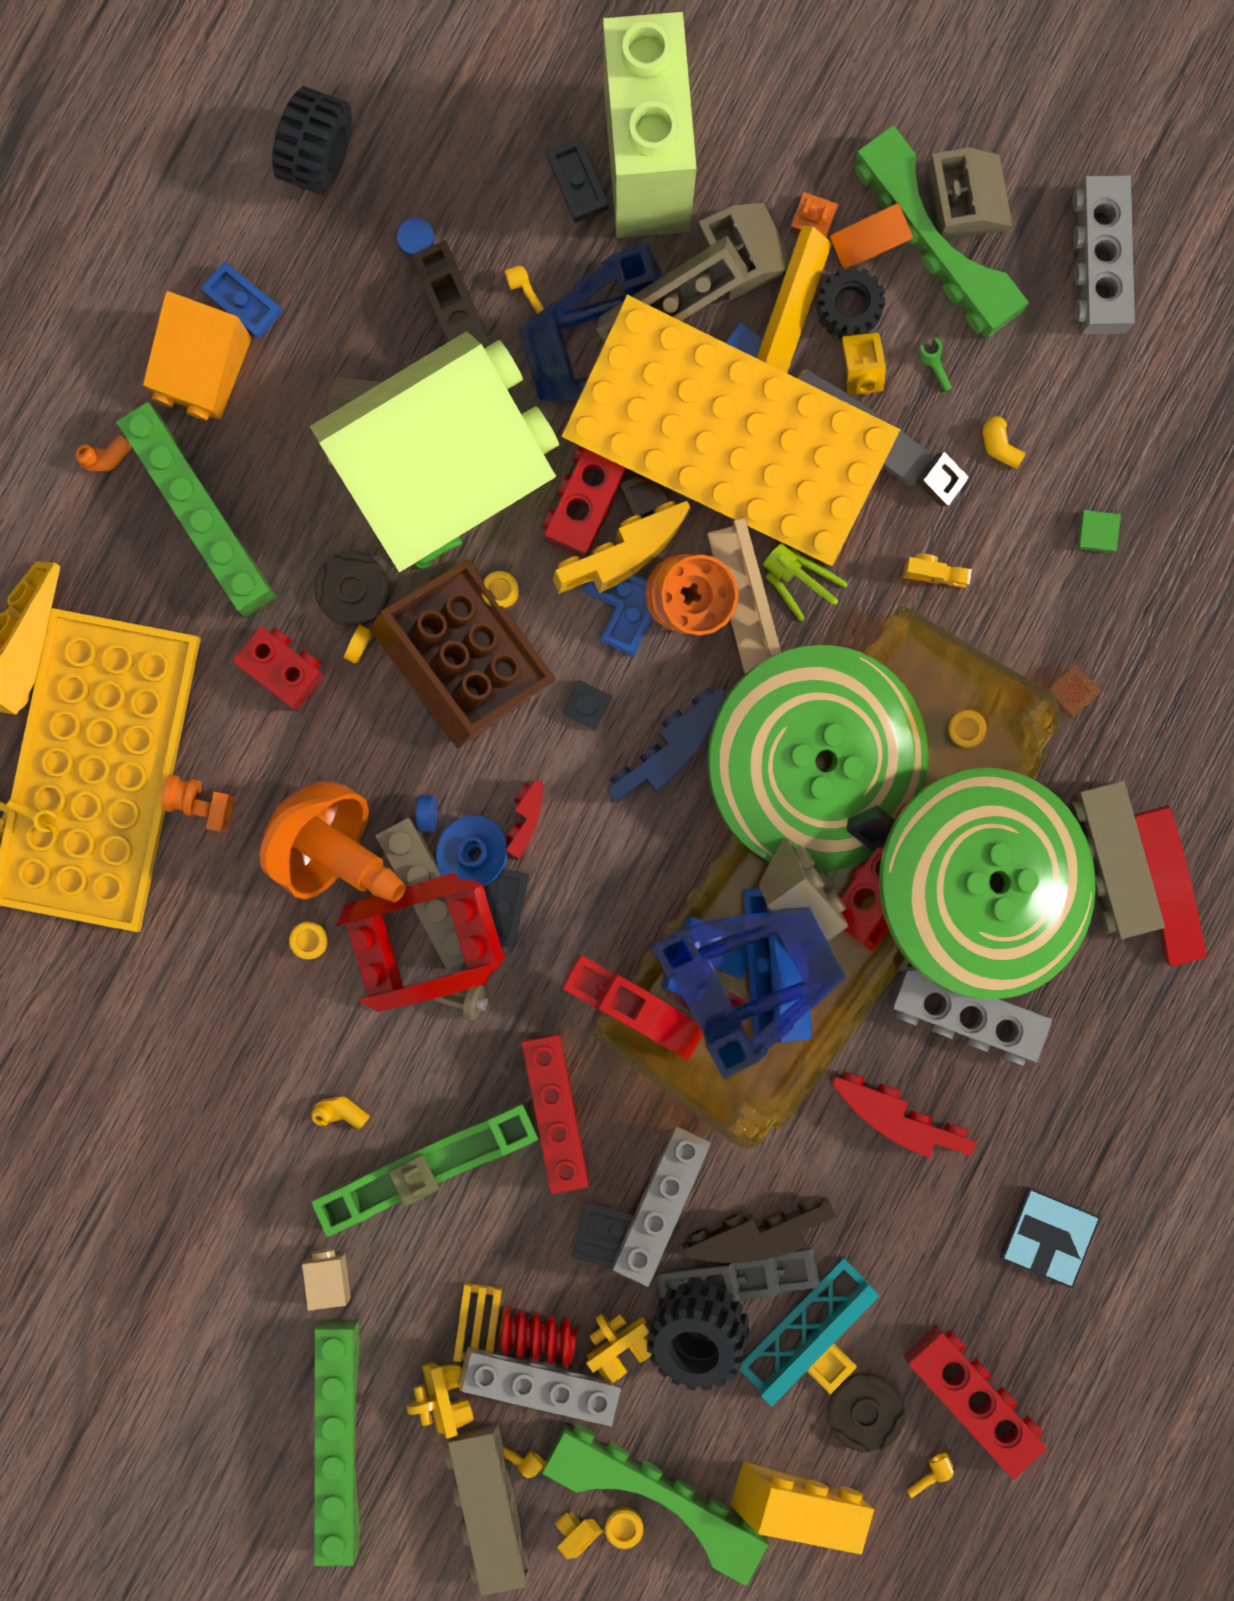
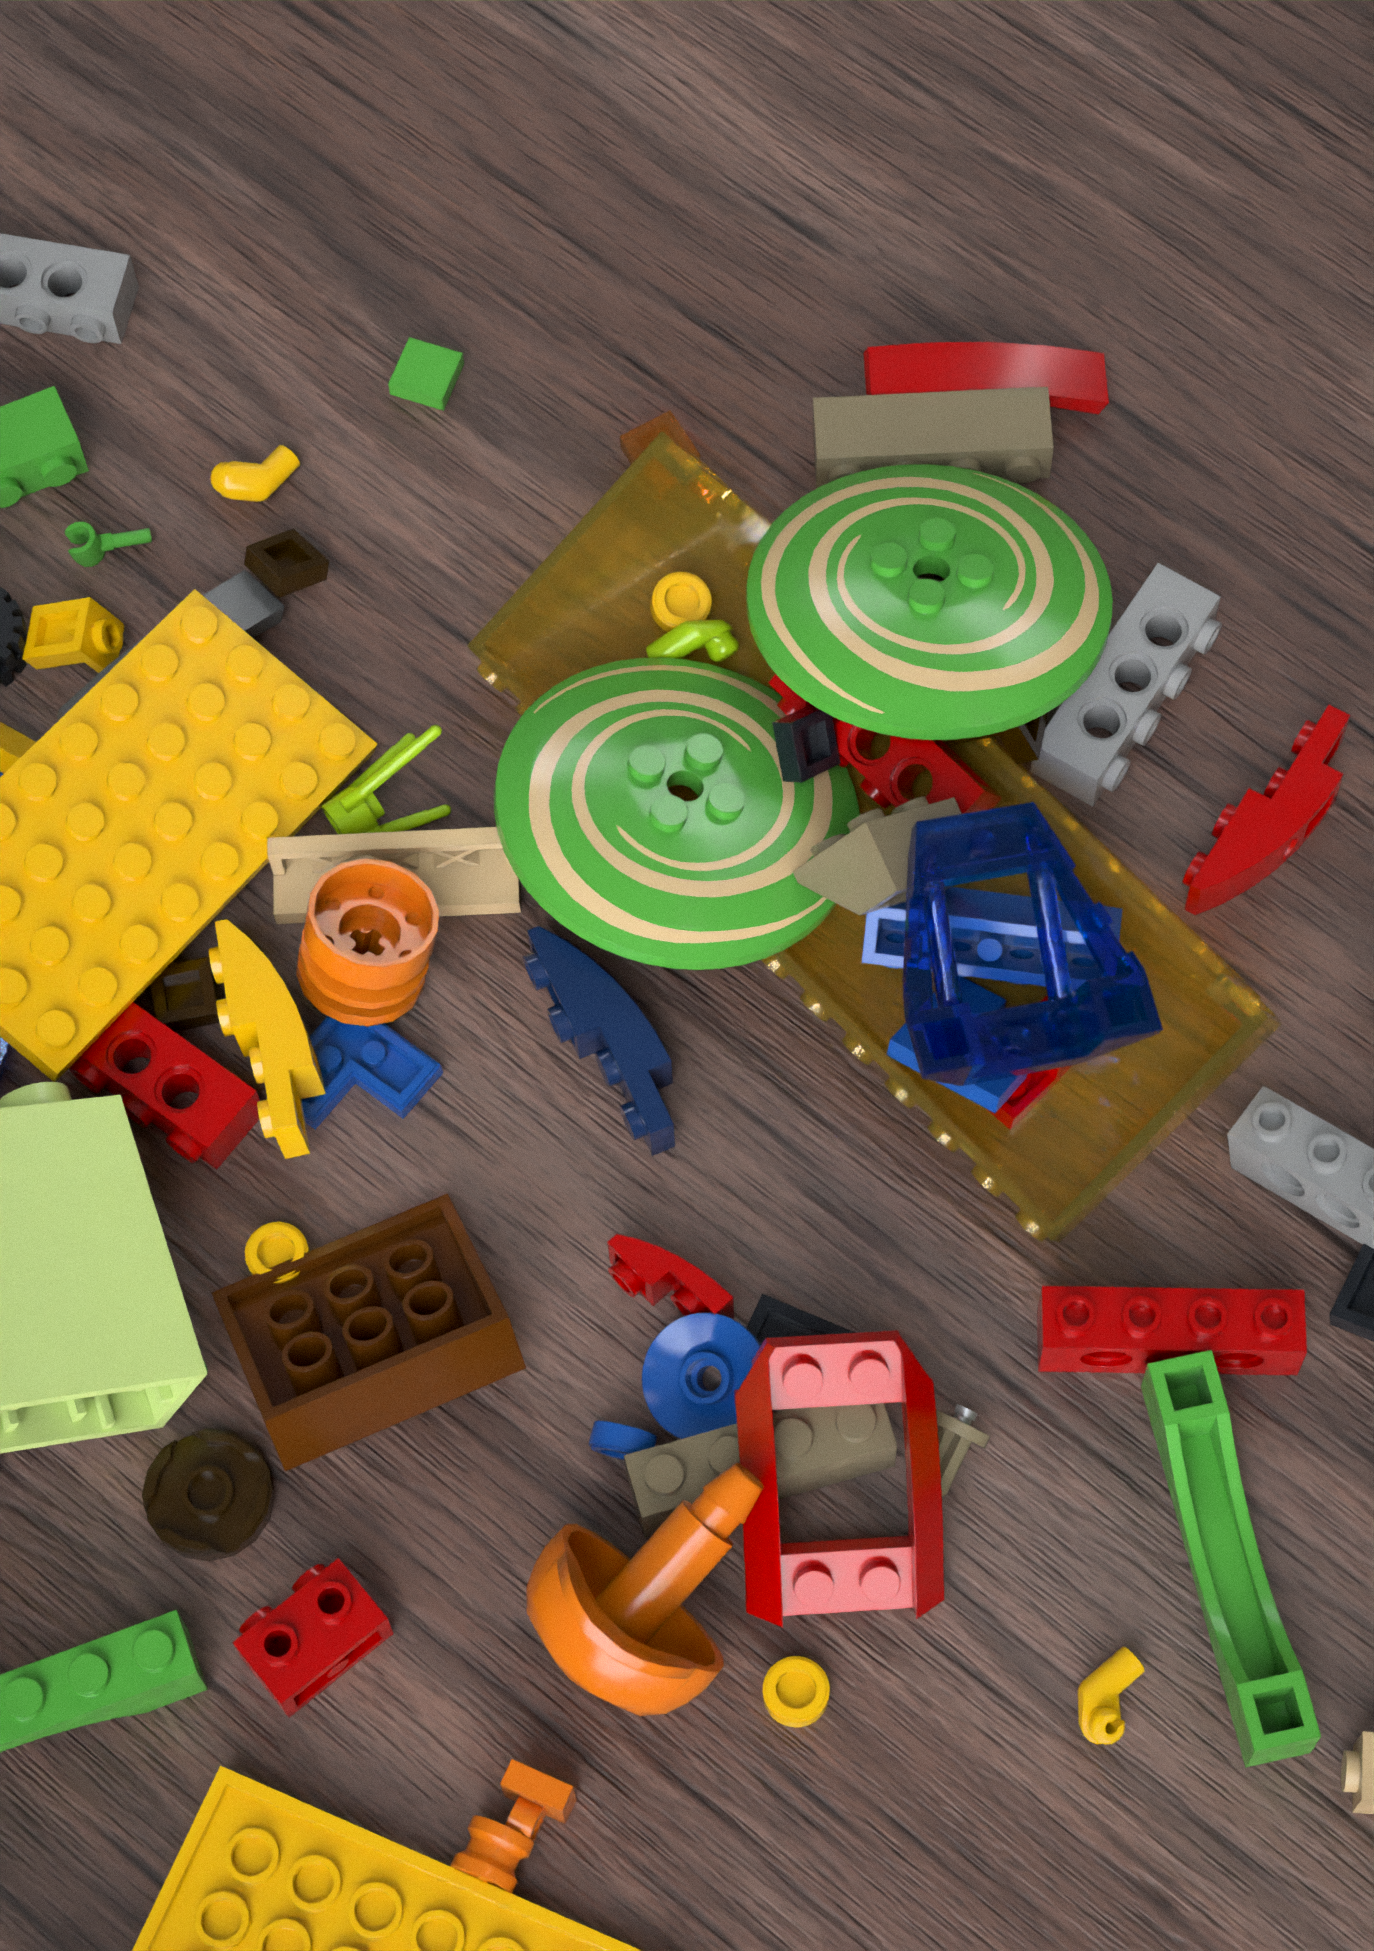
camera: 75 degrees left, 20 degrees down
(358, 644) = (306, 1497): yellow tile -> none
(413, 1180) = (1245, 1580): olive tile -> none
(587, 705) = (503, 1155): black plate -> none
(633, 1007) = (1014, 1159): red slope -> none
(927, 569) = (421, 608): yellow plate -> none
(944, 741) = (695, 635): none -> lime arm

